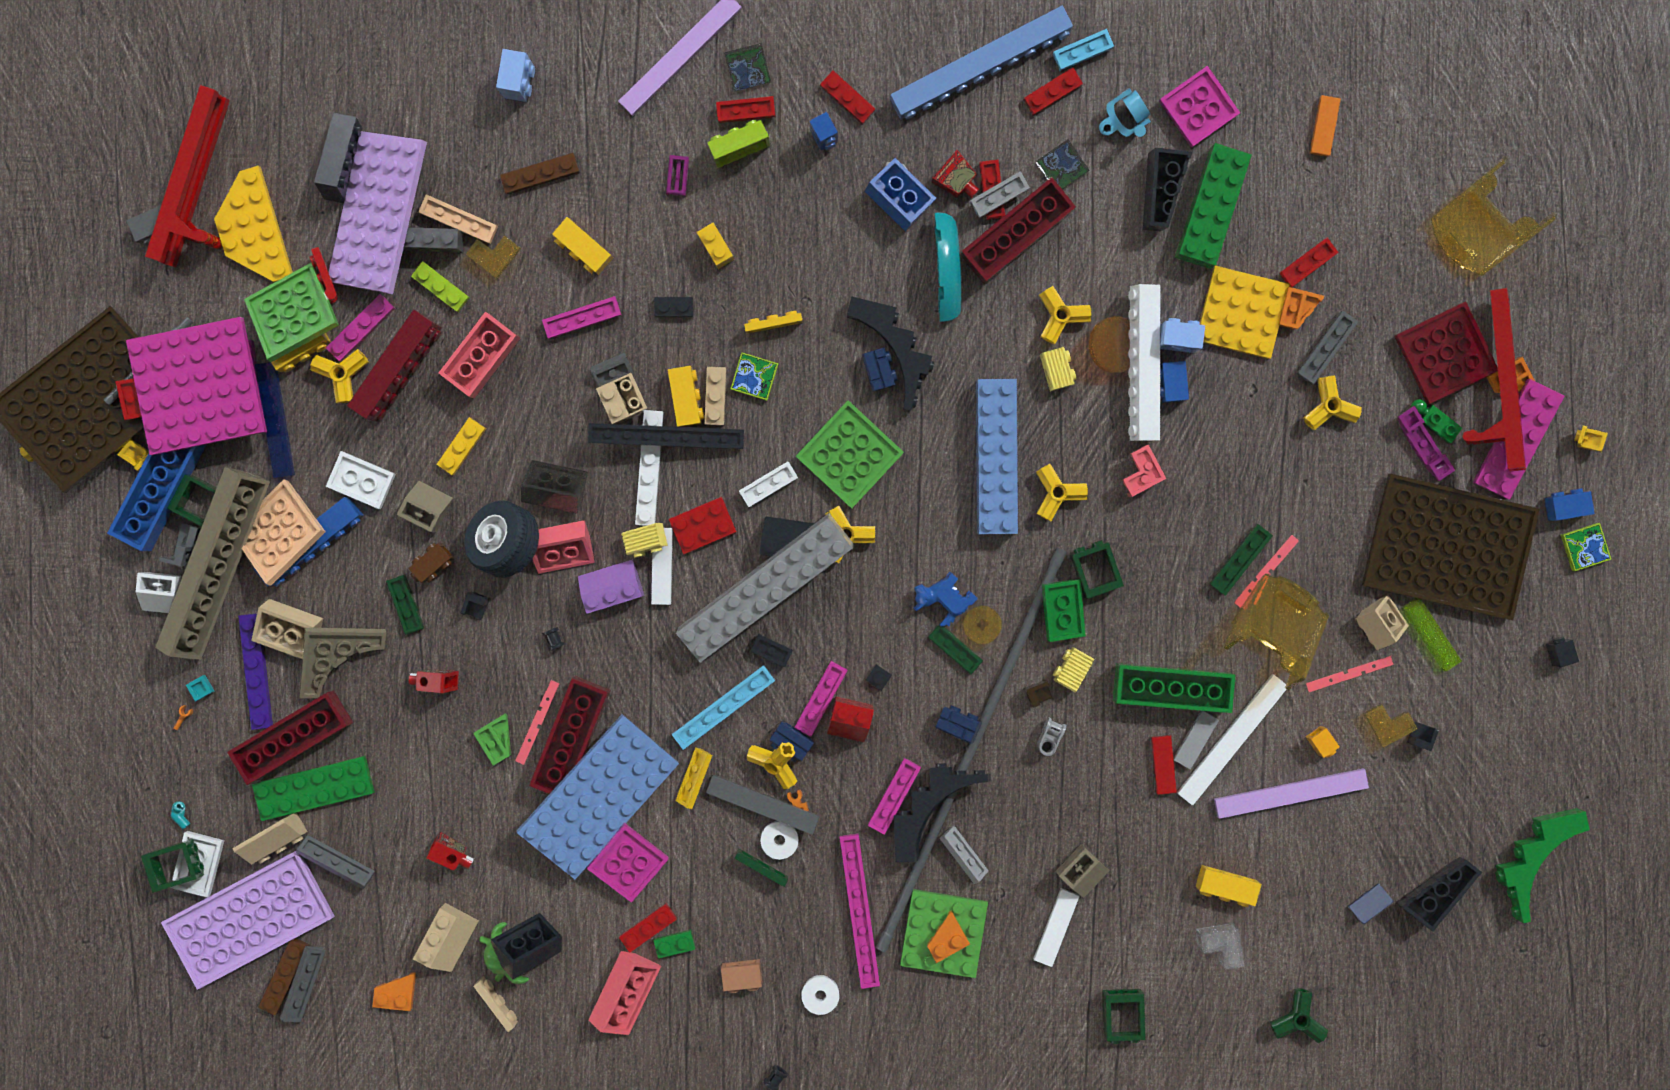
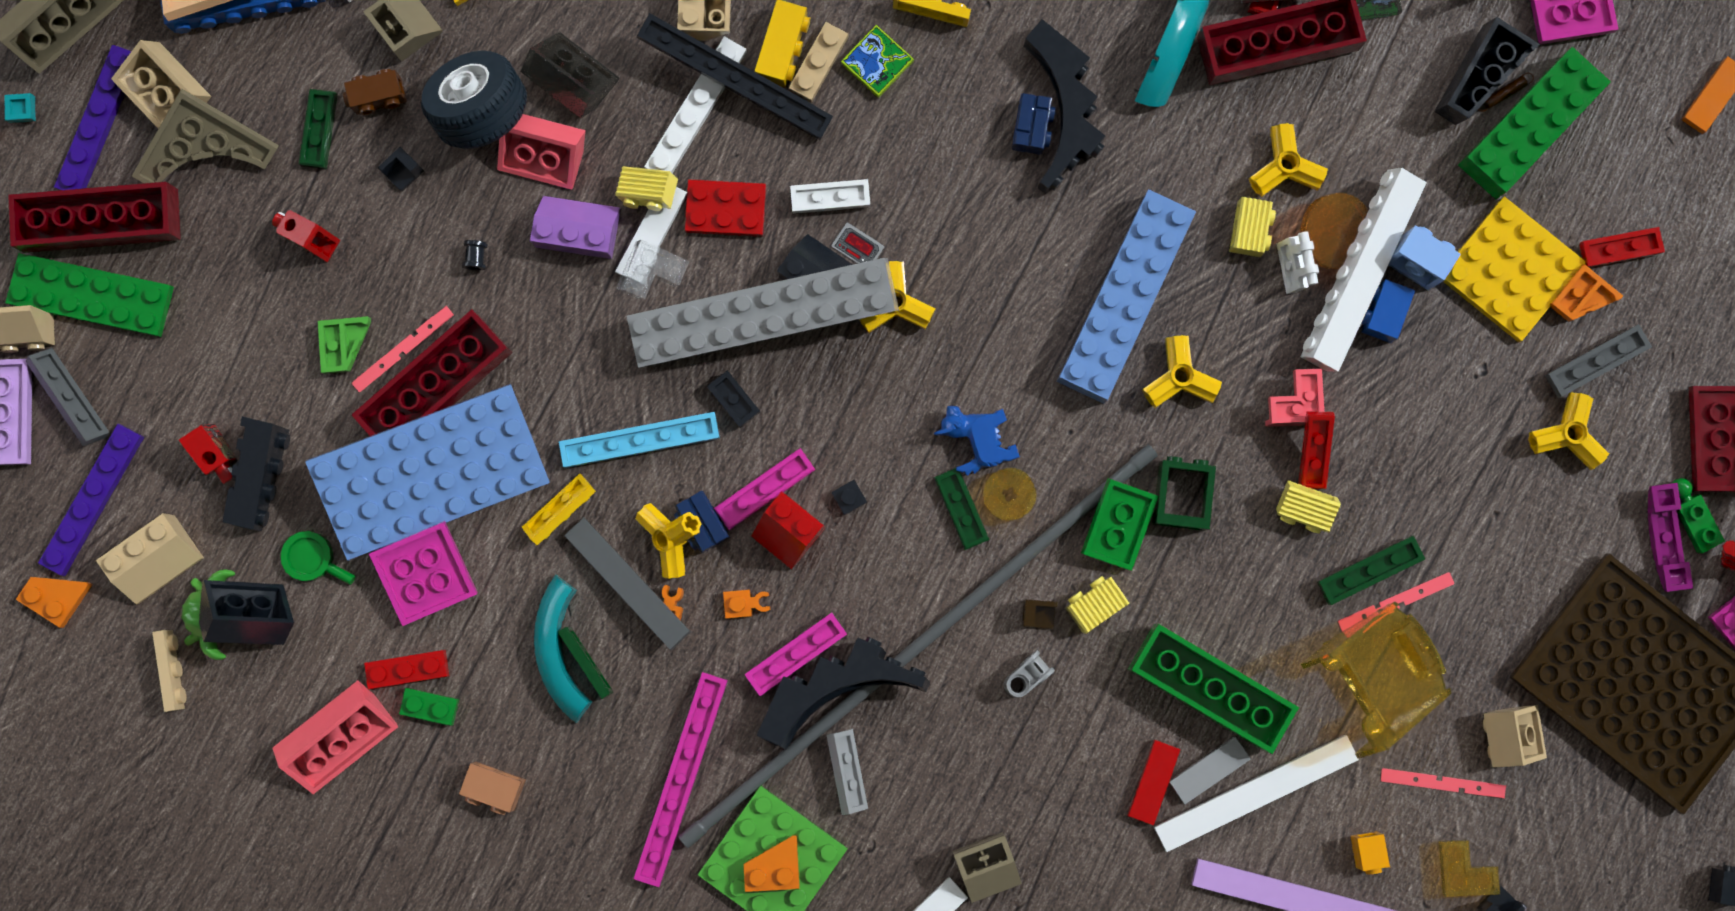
camera: 25 degrees right, 5 degrees down
(386, 919) = (91, 500): none -> dark purple plate
(485, 852) = (255, 473): none -> black wedge
(547, 887) = (309, 557): none -> green piece
(669, 593) = (649, 263): none -> clear brick
(734, 871) = (549, 650): none -> teal brick
(779, 851) = (610, 643): white tile -> none
(802, 507) = (857, 244): none -> sticker
(824, 1005) = (562, 862): white tile -> none
(842, 781) = (741, 603): none -> orange plate
(849, 454) = (947, 208): bright green plate -> none
(958, 724) = (920, 602): dark blue brick -> none
(1099, 379) = (1297, 263): none -> white plate
(1169, 499) = (1316, 449): none -> red tile
(1180, 539) = (1307, 507): none -> light yellow brick
(1185, 190) = (1506, 91): none -> reddish brown piece
(1431, 634) = (1571, 783): clear neon green plate -> none

